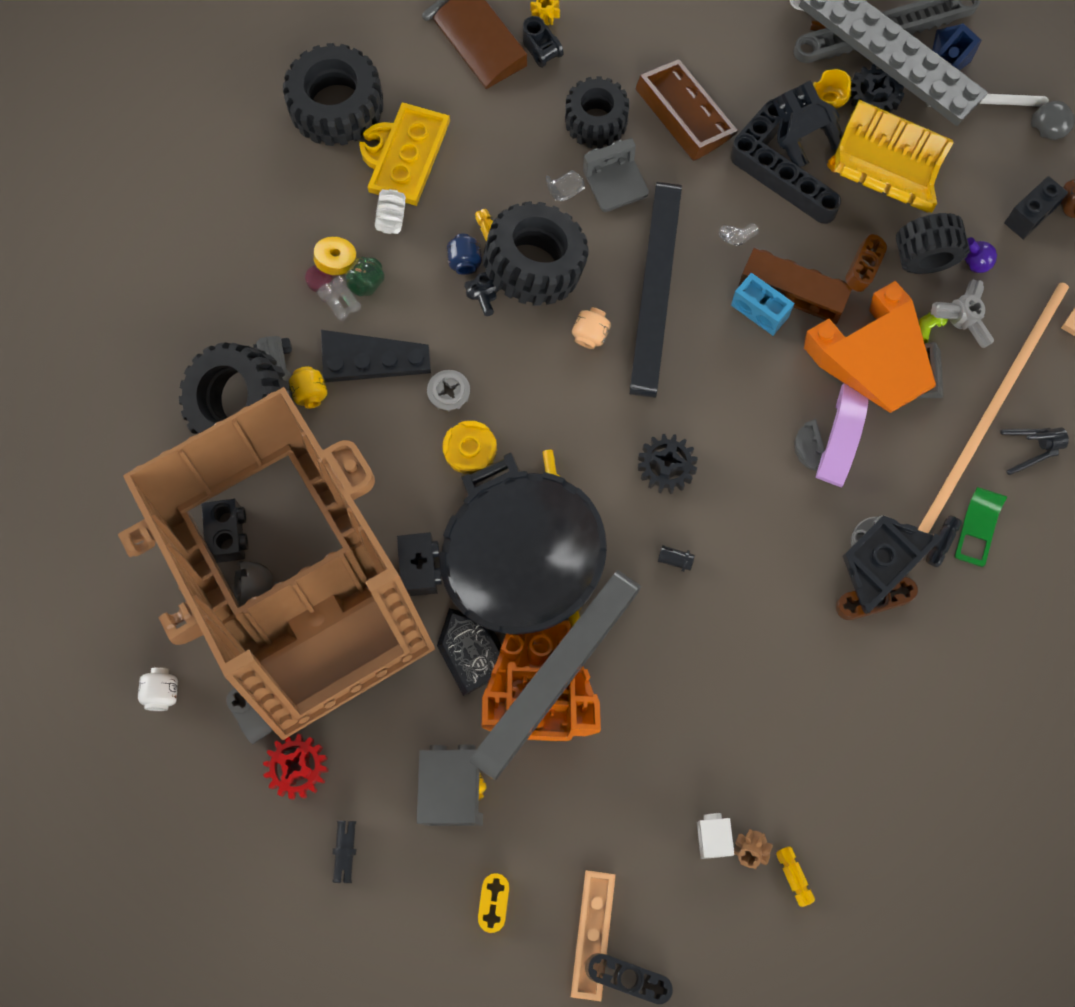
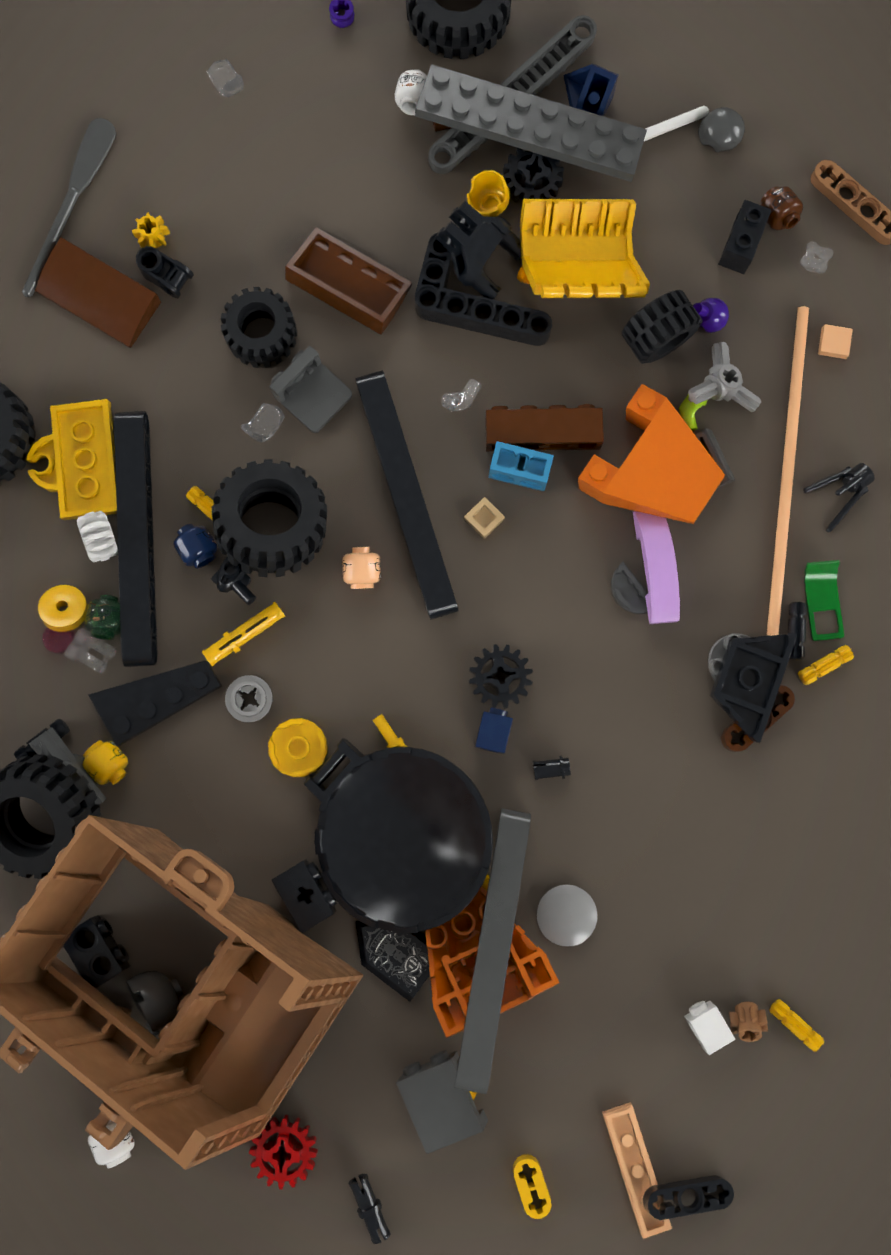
camera: 25 degrees left, 10 degrees up
(418, 230) = (135, 539): none -> black beam
(469, 337) = (214, 654): none -> yellow pin
(632, 686) = (566, 915): none -> light grey dish
(640, 505) = (494, 731): none -> dark blue brick
(712, 335) = (484, 517): none -> tan tile
(858, 266) = (607, 401): reddish brown beam -> none
(957, 580) = (825, 665): none -> yellow axle

